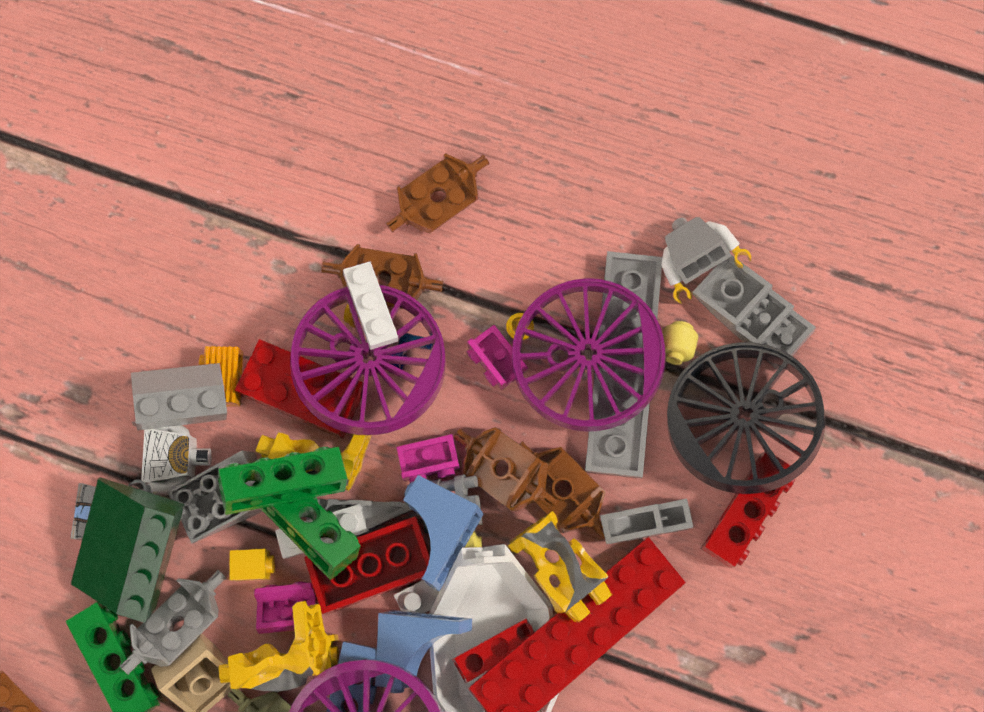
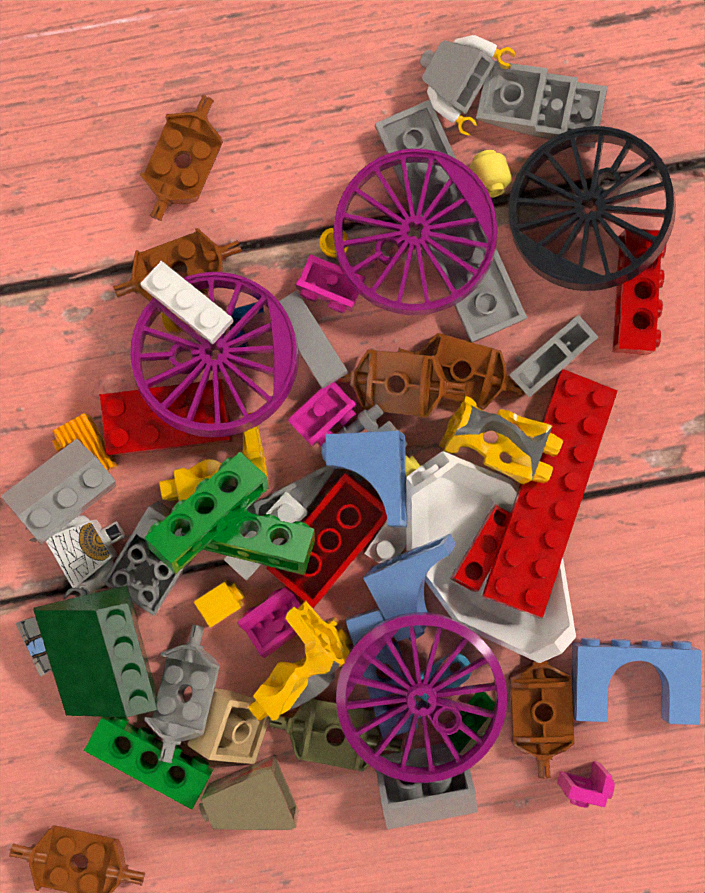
camera: 35 degrees left, 10 degrees up
(454, 395) = (312, 342): none -> light grey slope

